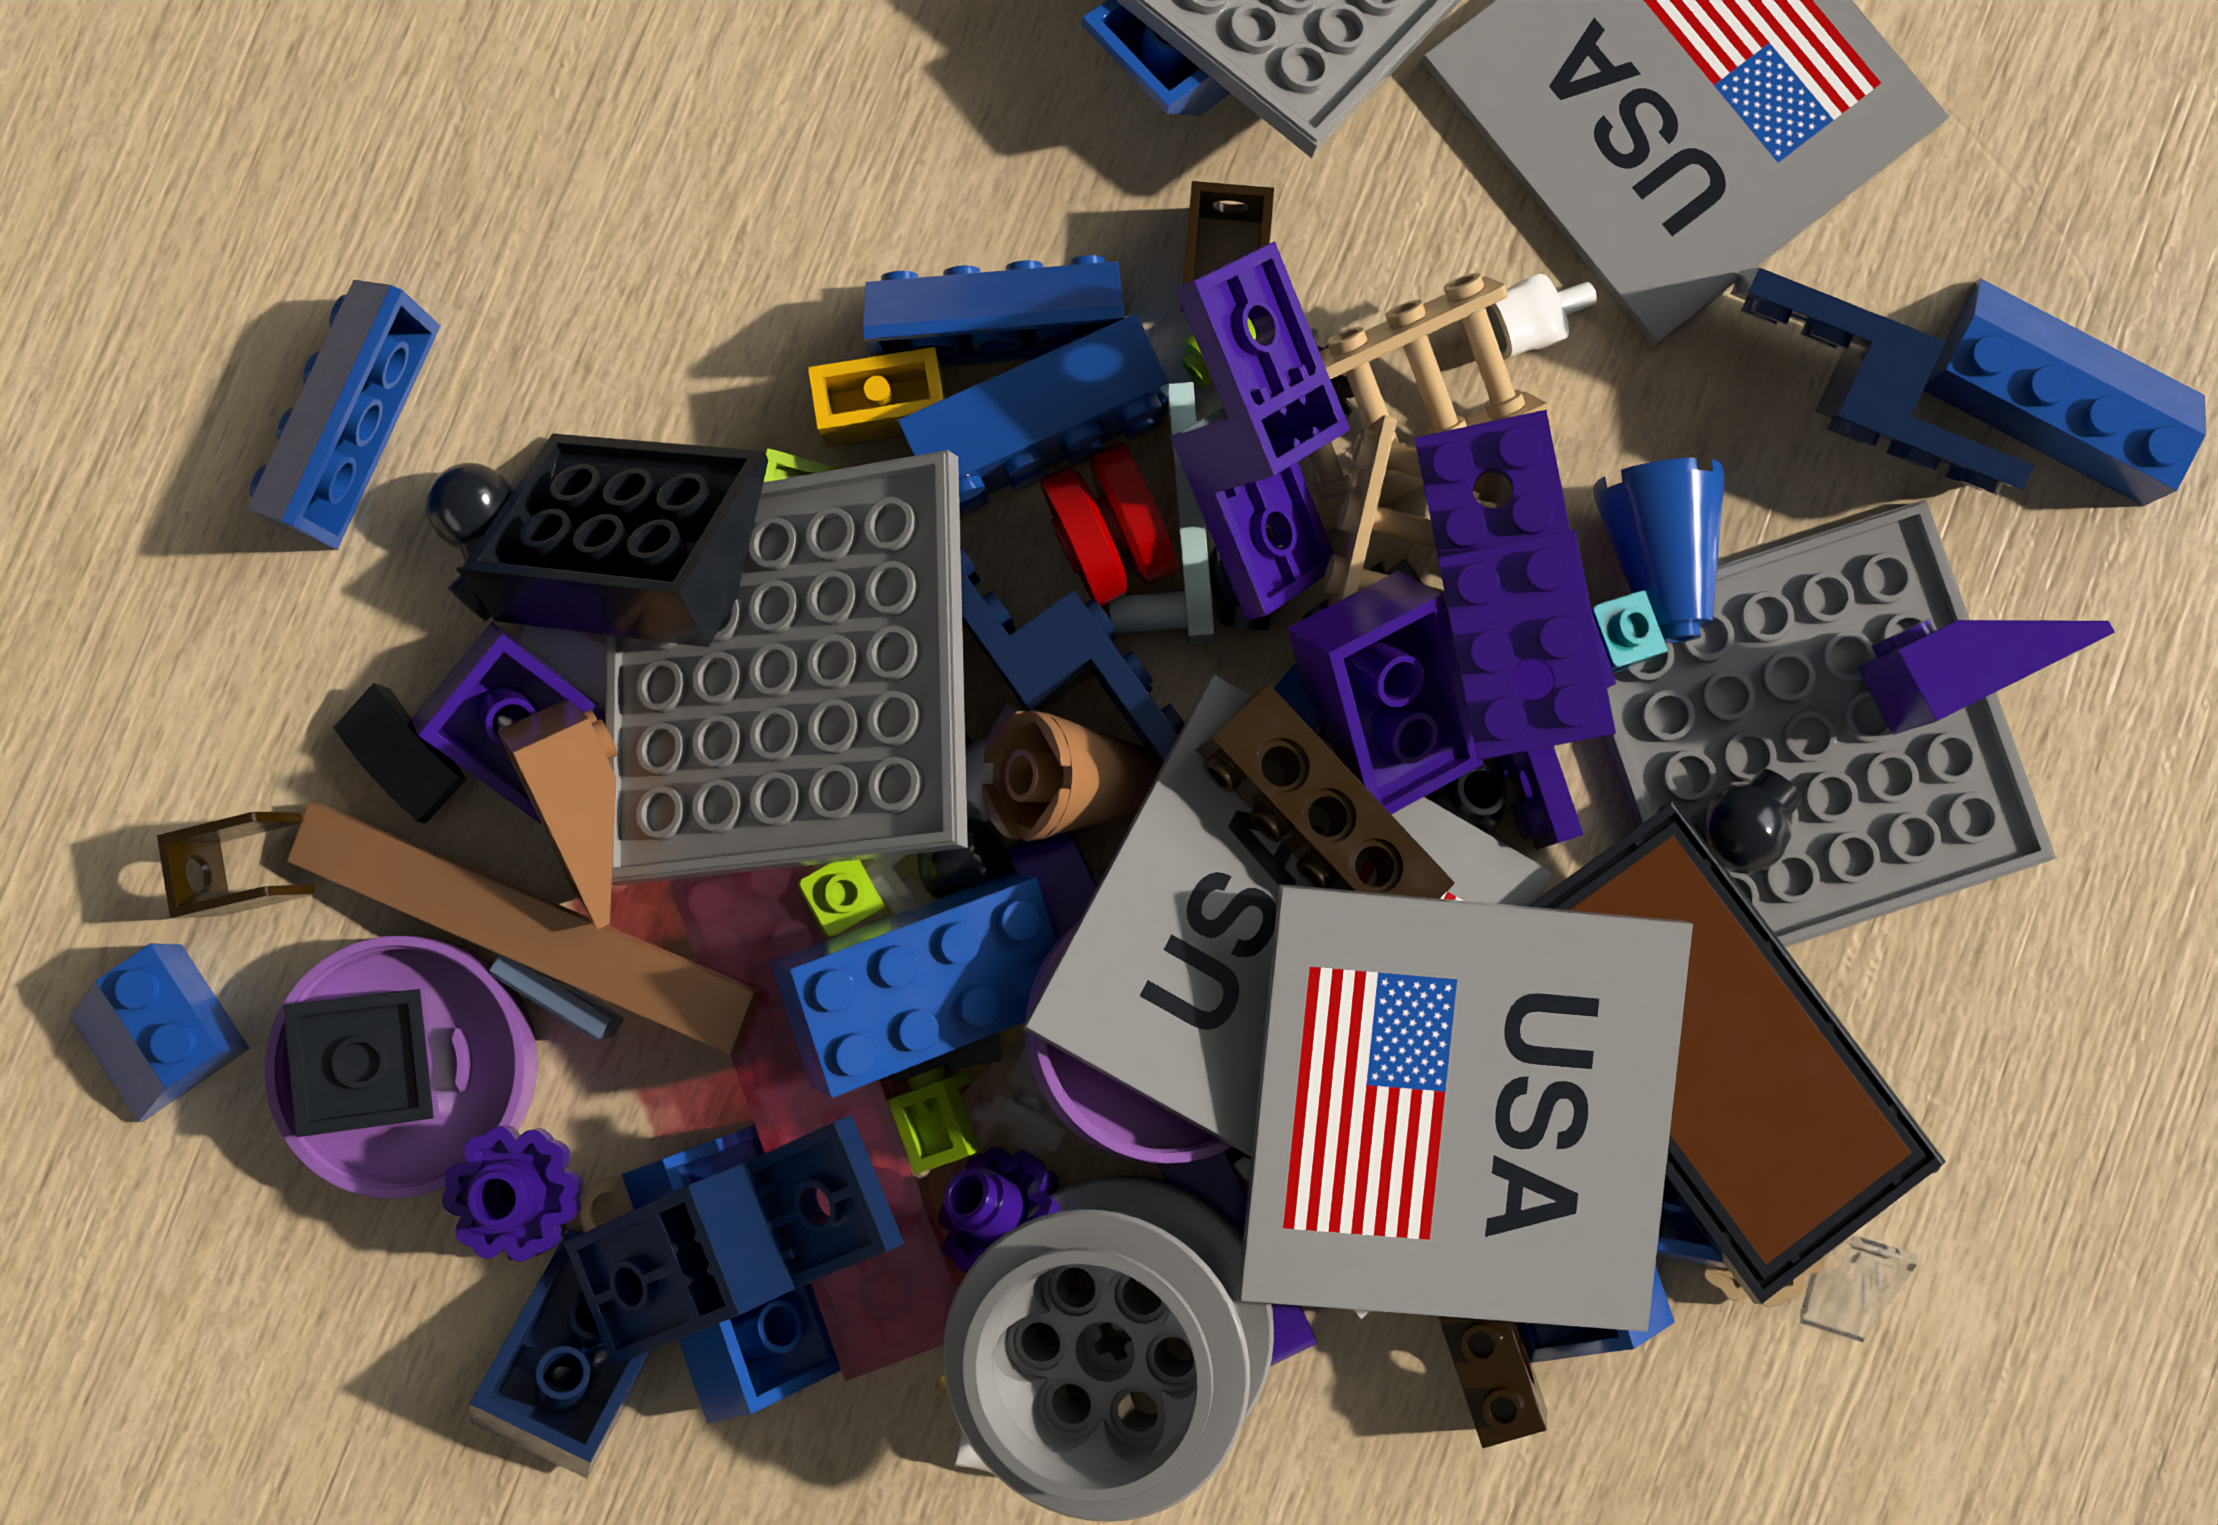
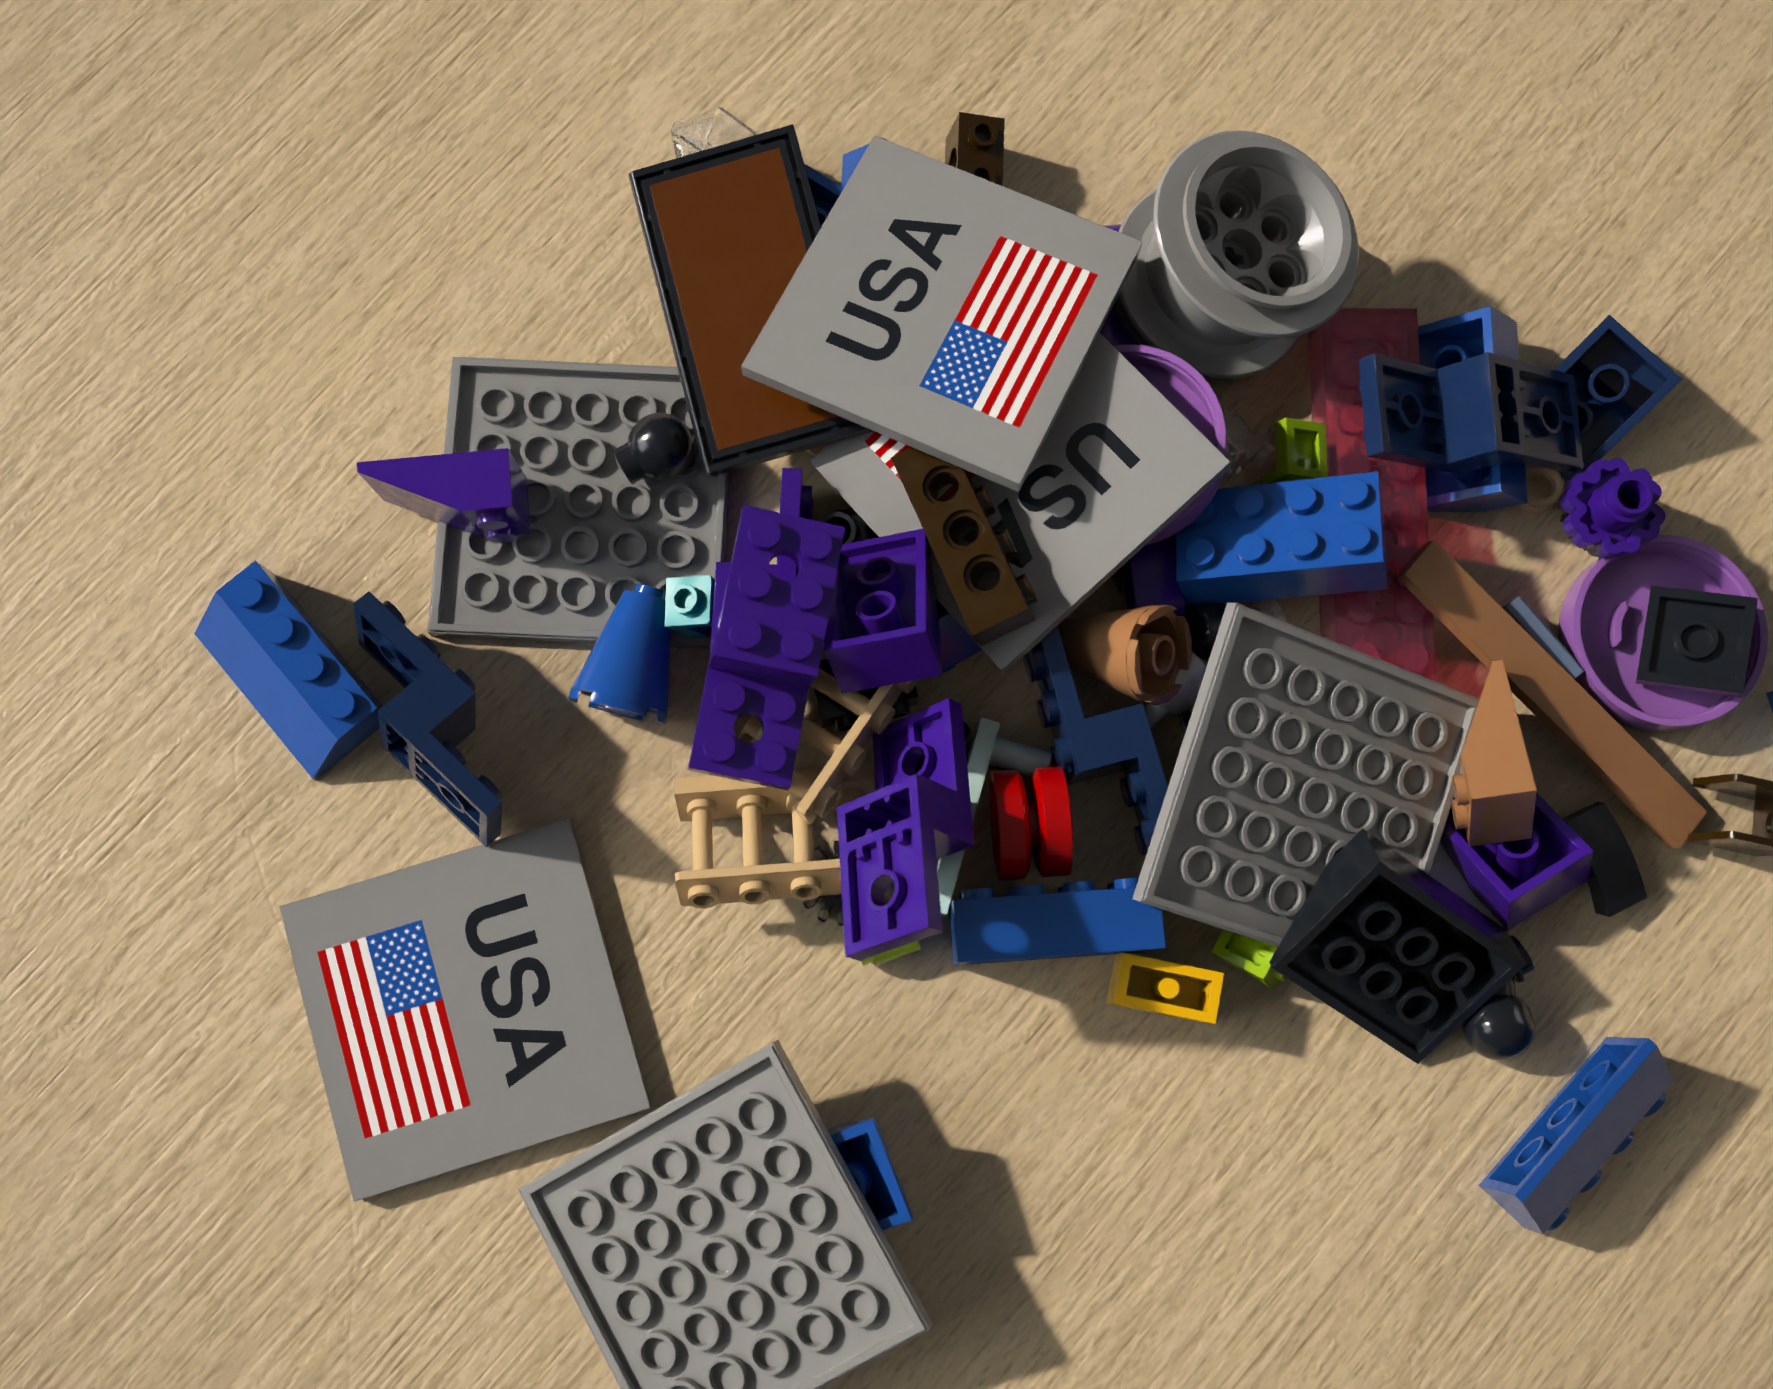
camera: 170 degrees left, 5 degrees down
(840, 896) = (1319, 619): lime bracket -> none
(992, 314) = (1056, 1022): blue slope -> none
(993, 1199) = (1279, 385): dark purple plant -> none
(1206, 204) = (867, 1053): dark brown piece -> none
(1536, 314) = (650, 870): white piece -> none

